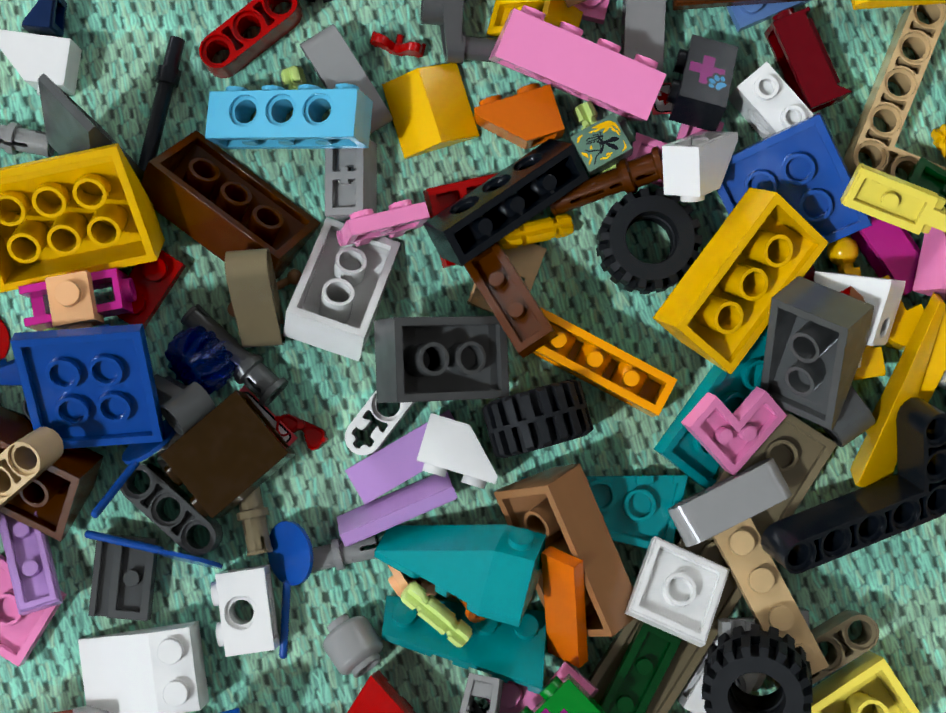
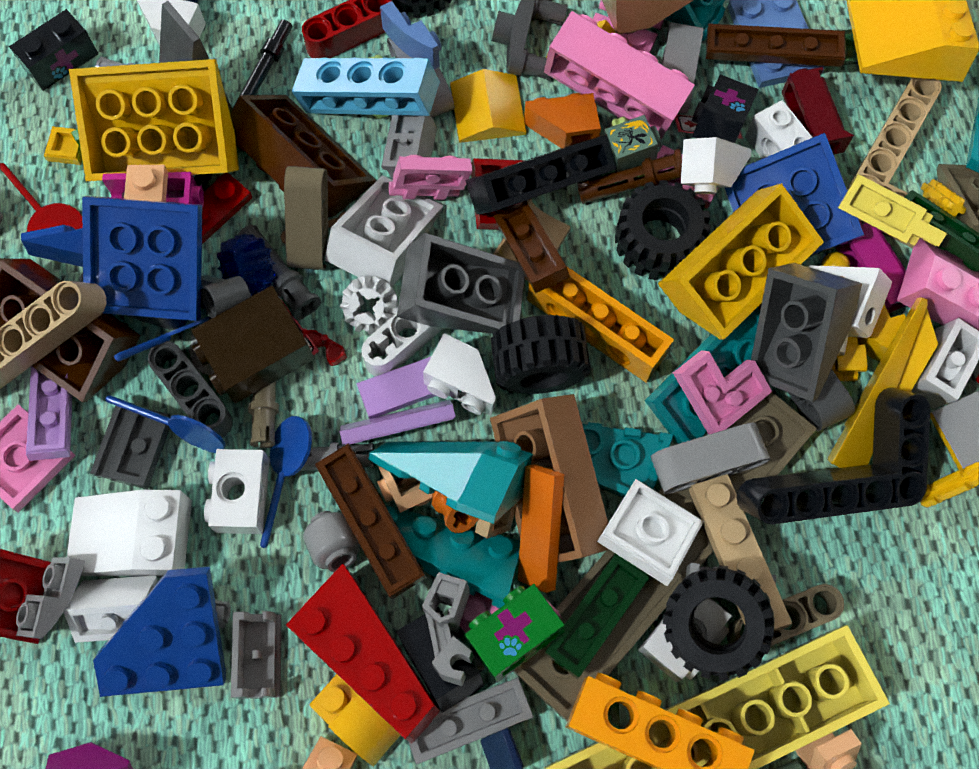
camera: 10 degrees right, 15 degrees down
(336, 54) = (410, 38): none -> medium blue slope
(342, 364) = (370, 288): none -> white gear
(389, 625) = (370, 521): none -> reddish brown tile
(397, 48) = (471, 58): red piece -> none
(436, 614) = (416, 514): yellowish green axle -> none
(539, 231) = (564, 209): yellow axle -> none

